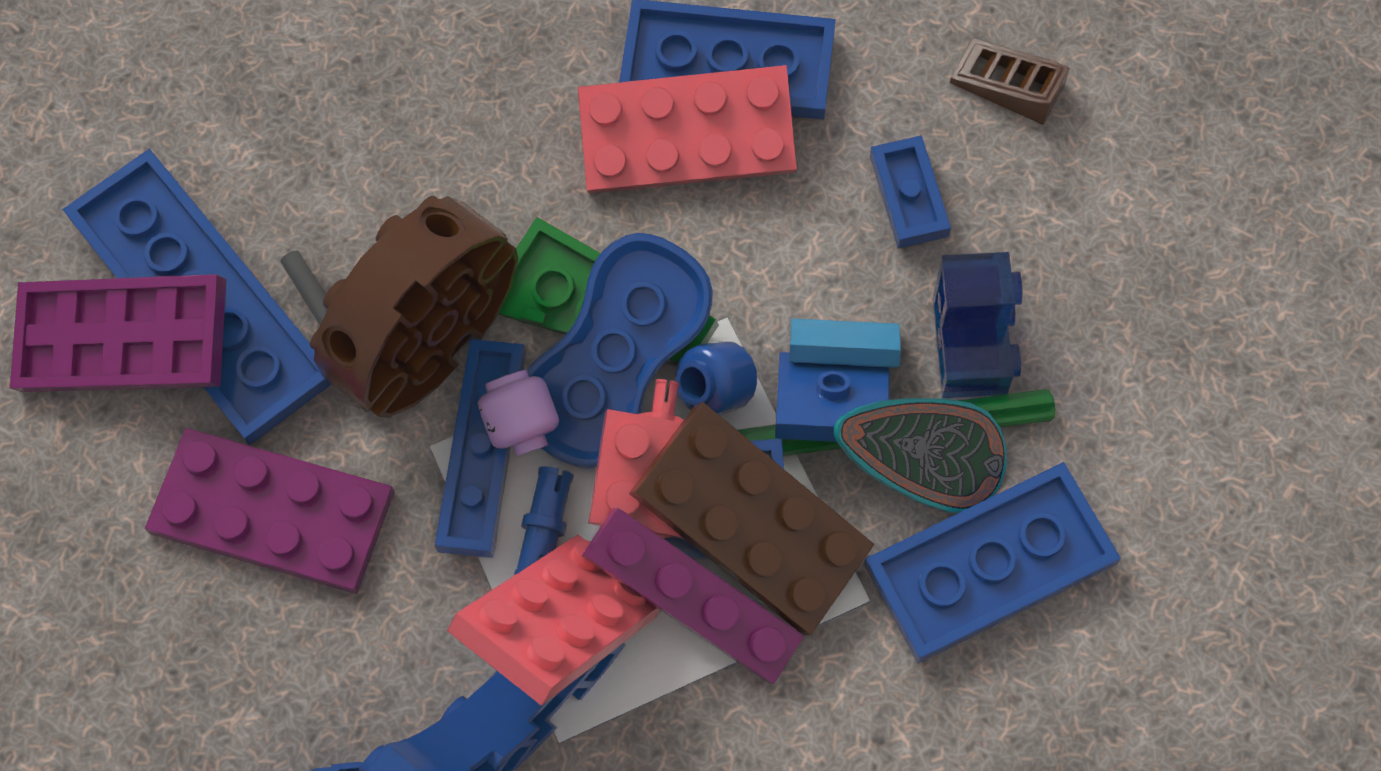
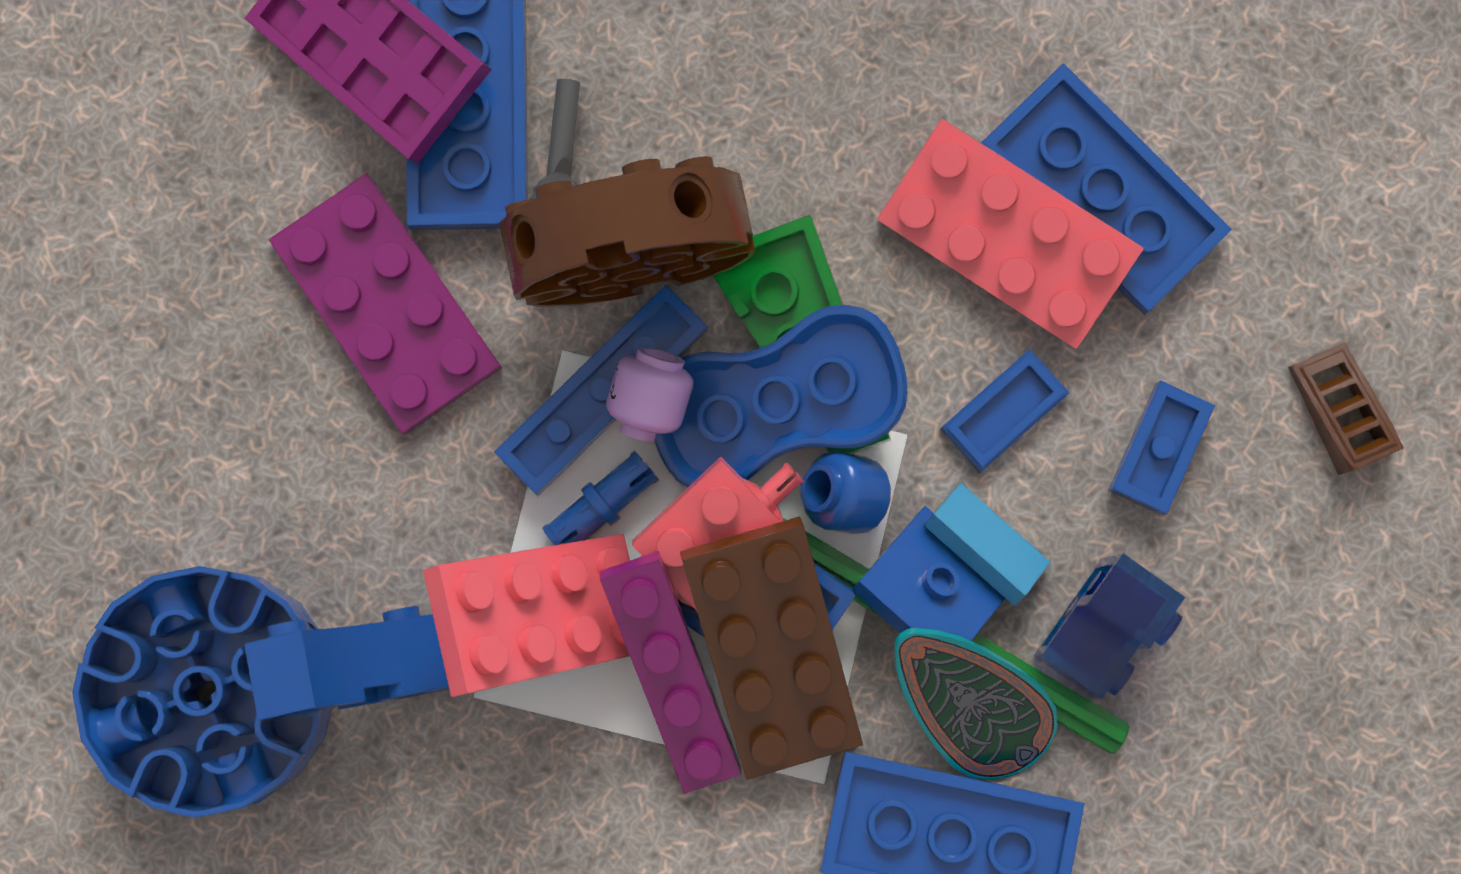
camera: 30 degrees right, 15 degrees up
(781, 250) = (1004, 411): none -> blue tile

